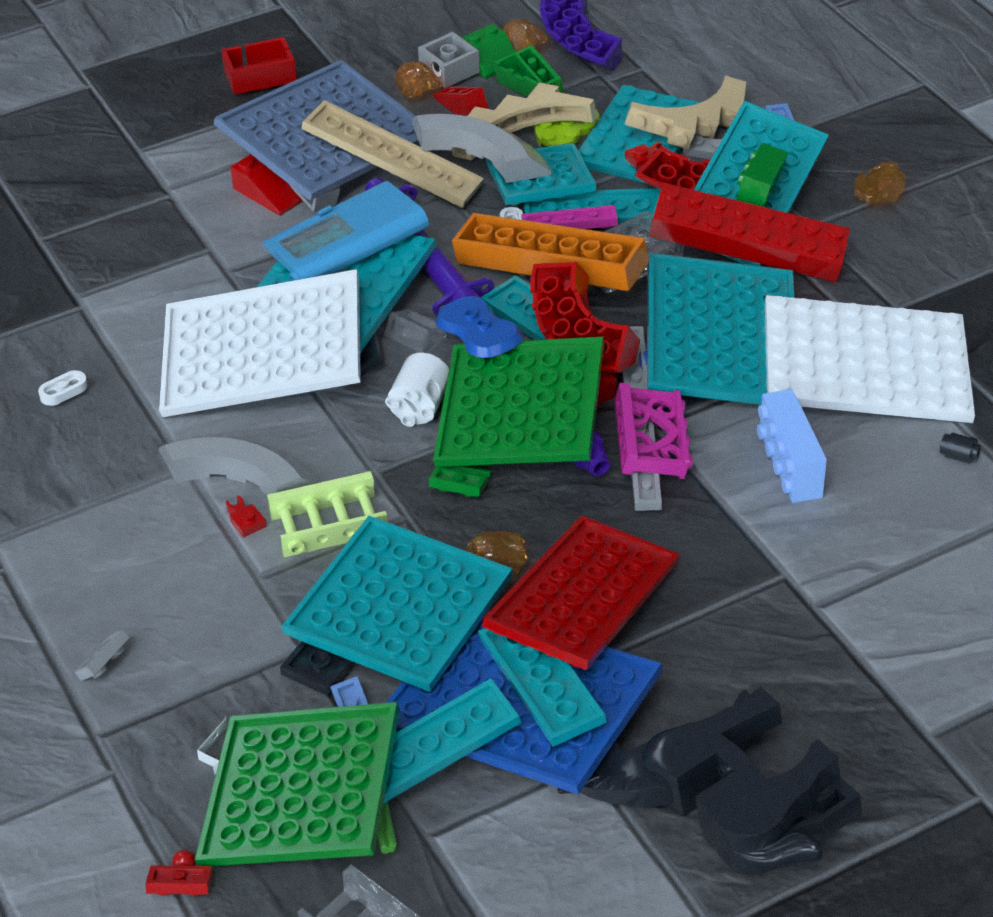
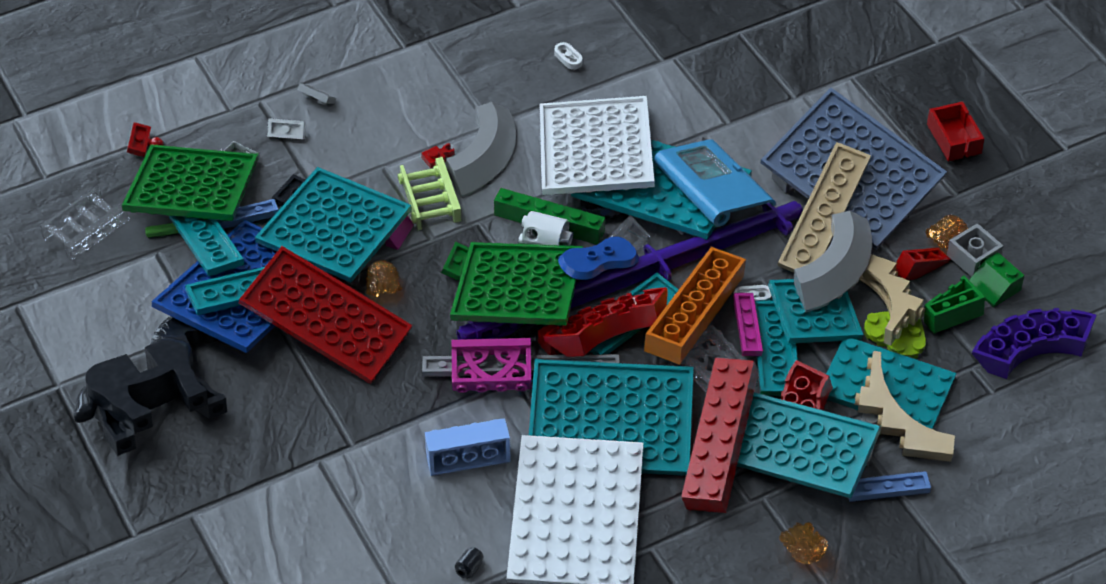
camera: 90 degrees right, 5 degrees up
(176, 686) = (286, 128): none -> white plate
(369, 407) = (583, 224): none -> green brick
(523, 34) = (1020, 300): clear orange hair -> none
(641, 154) = (841, 377): red plate -> none
(761, 175) = (777, 435): green wedge -> none

